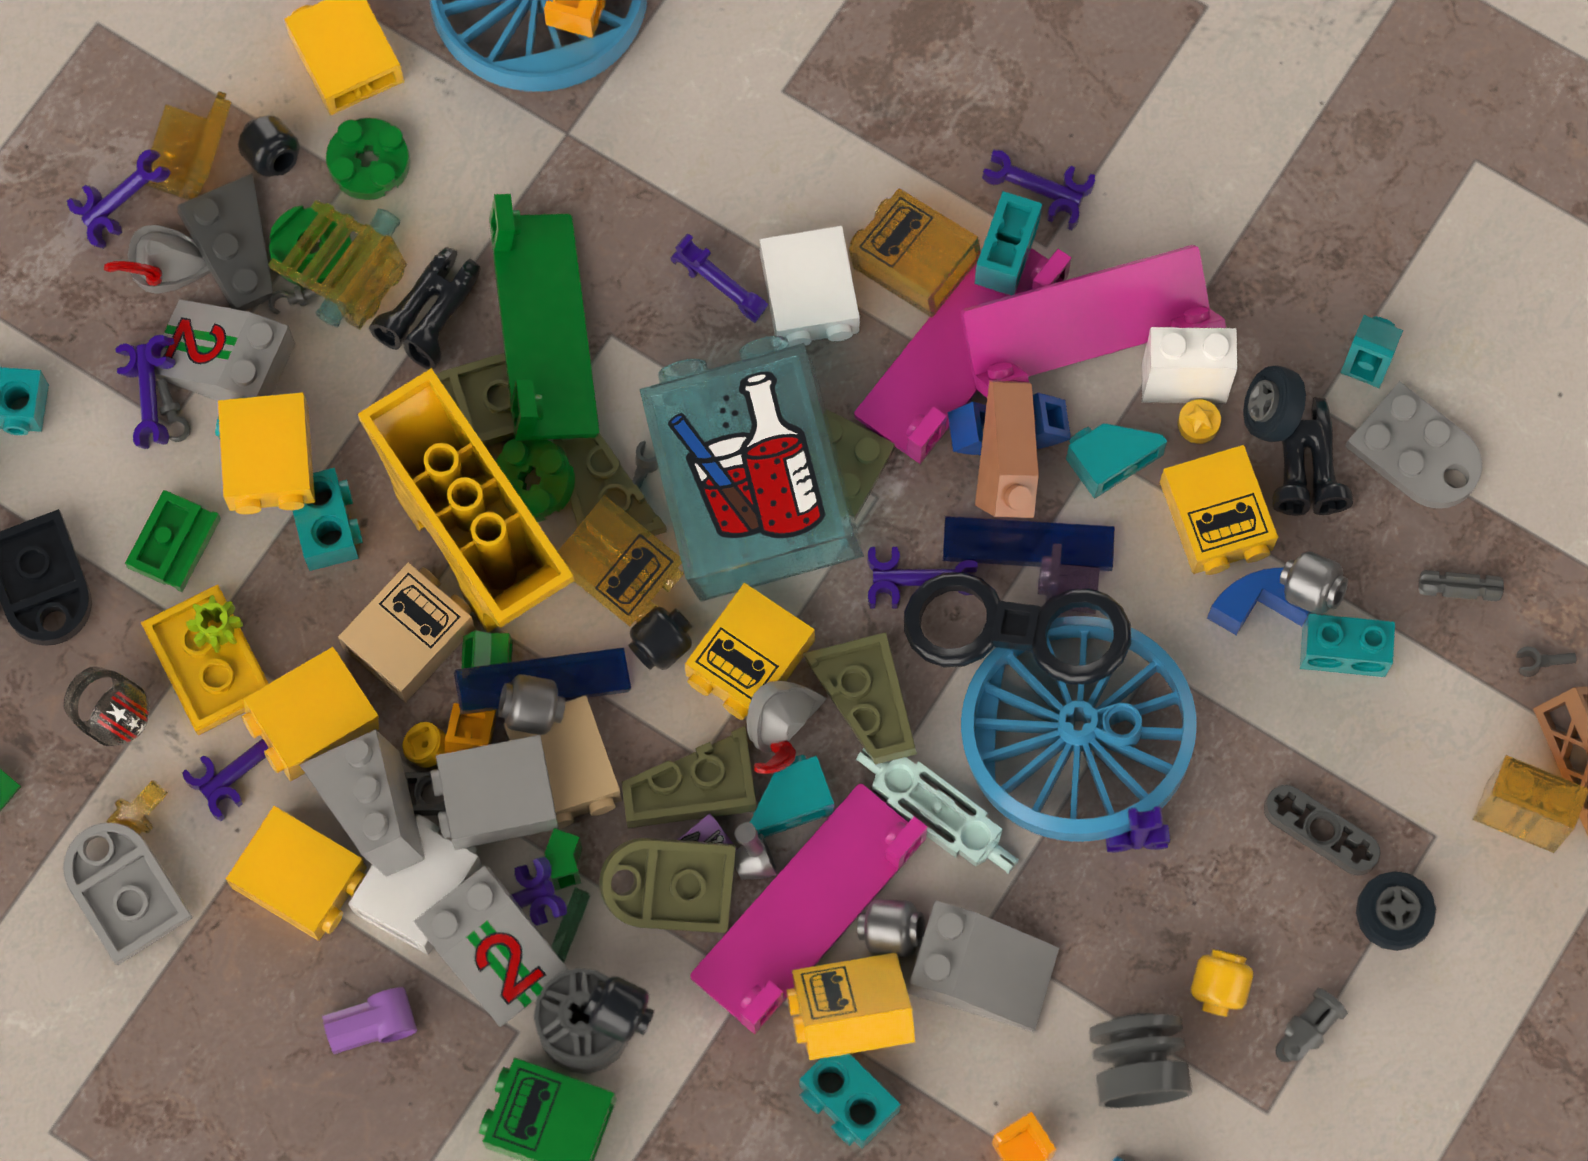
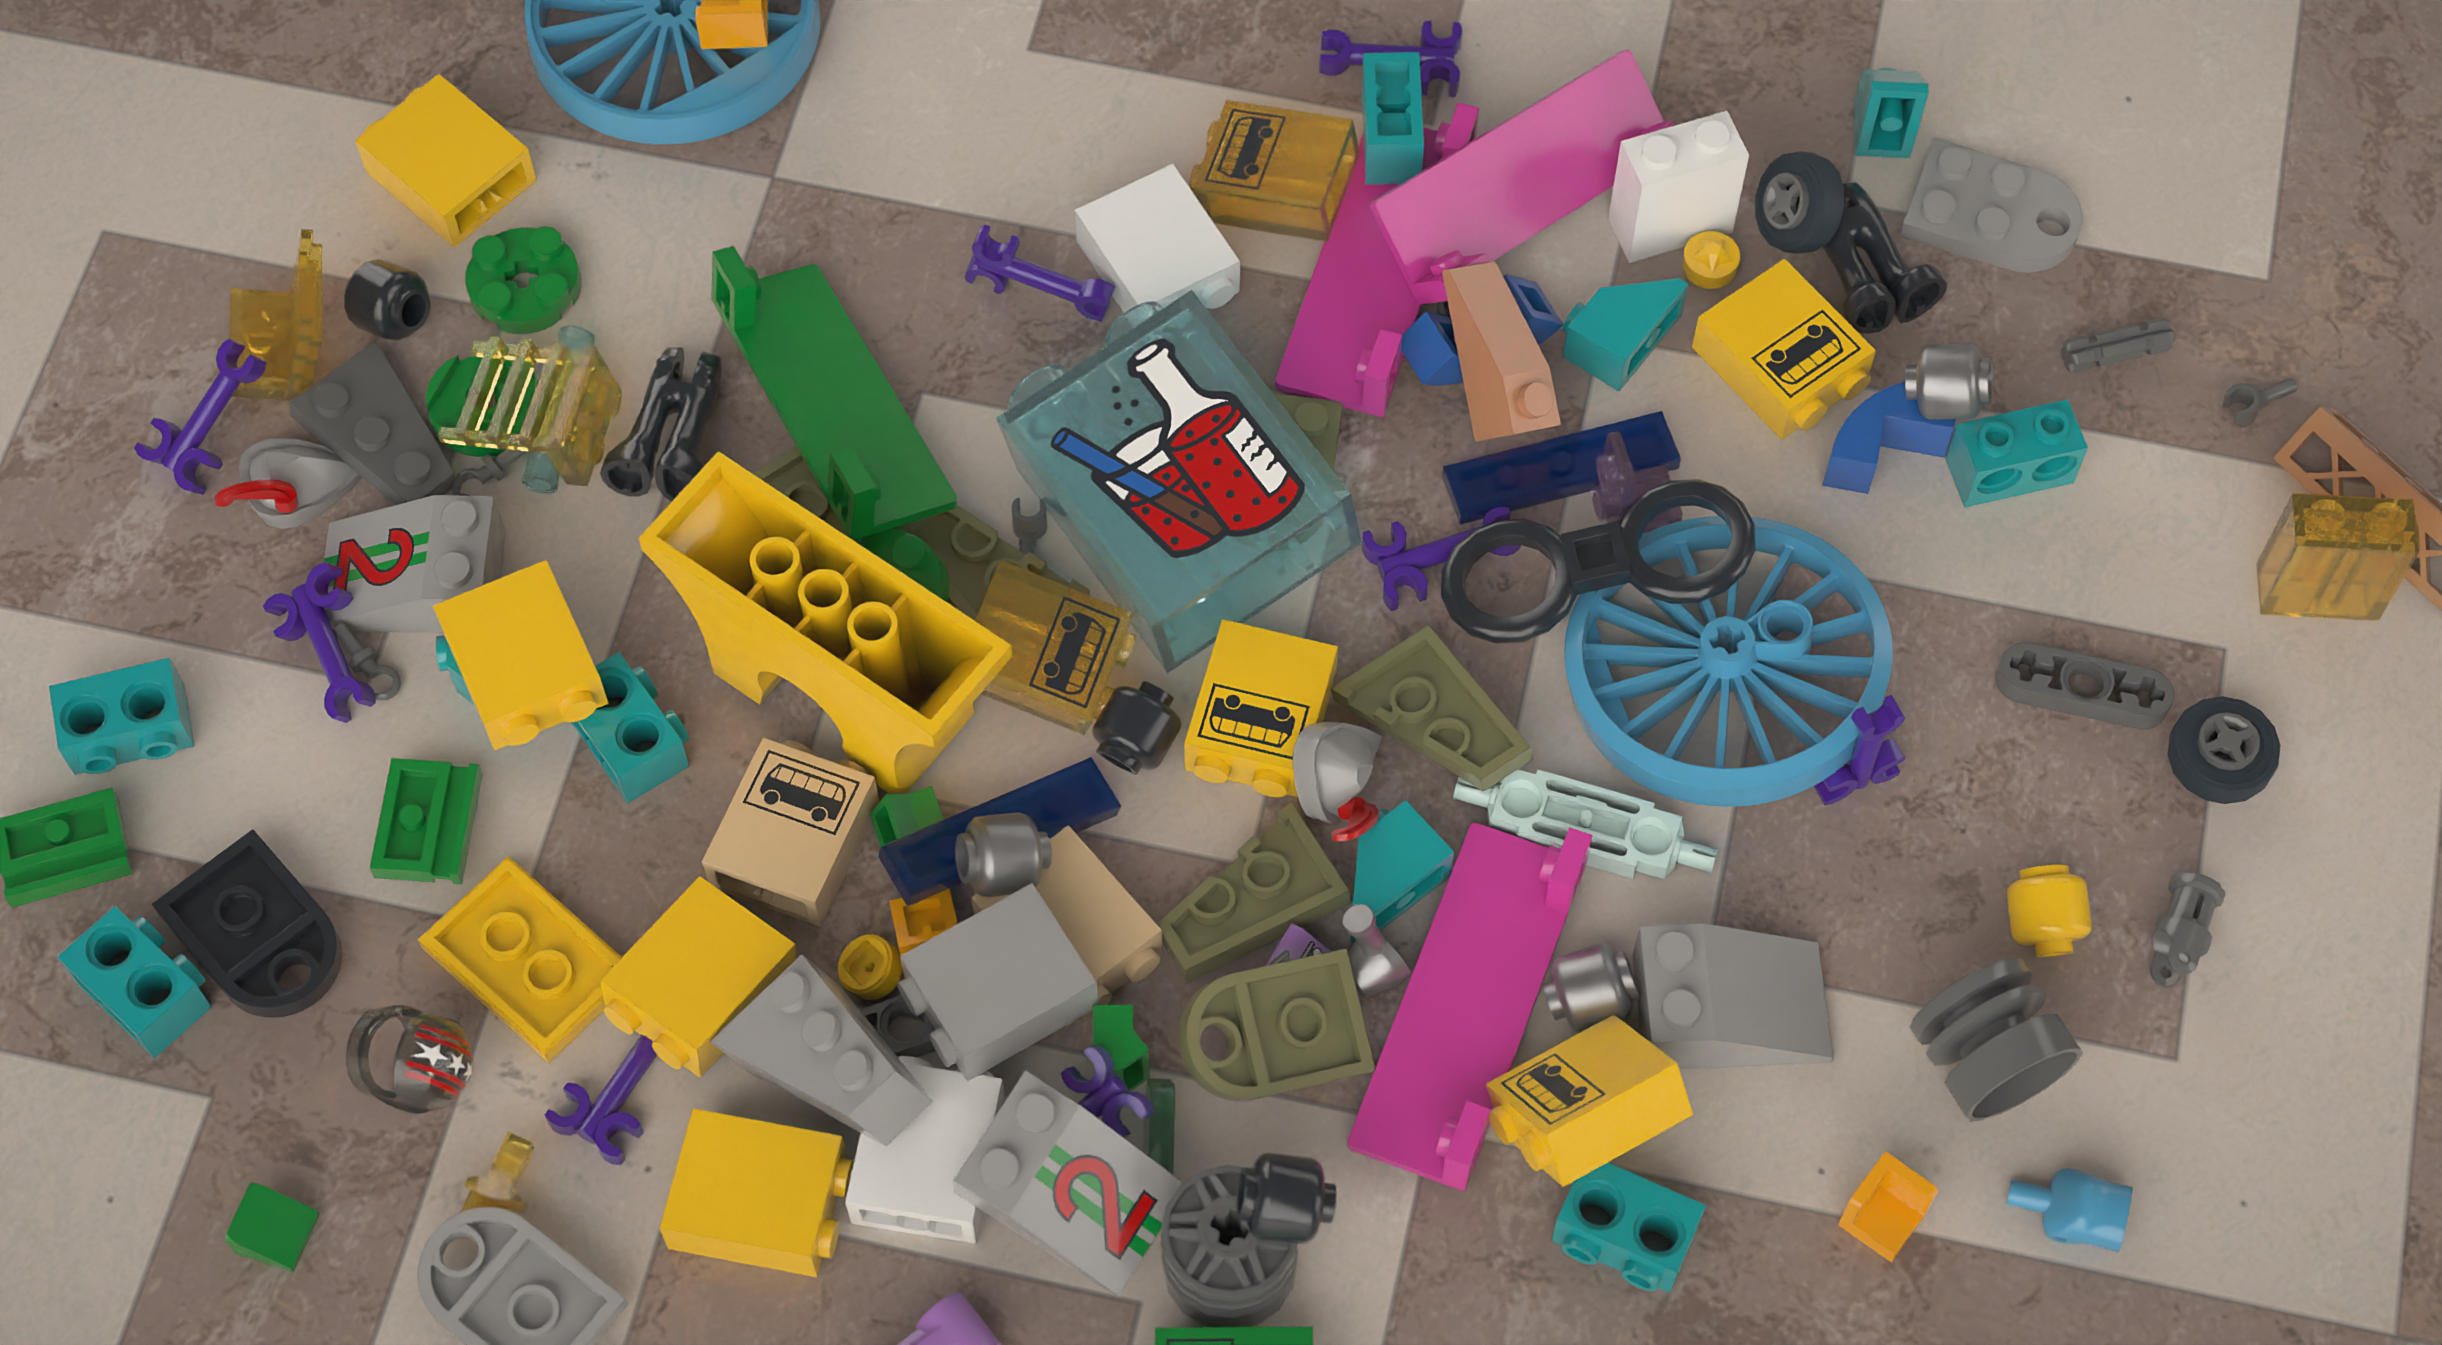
camera: 20 degrees left, 10 degrees down
(217, 613) = (530, 914): lime gear -> none

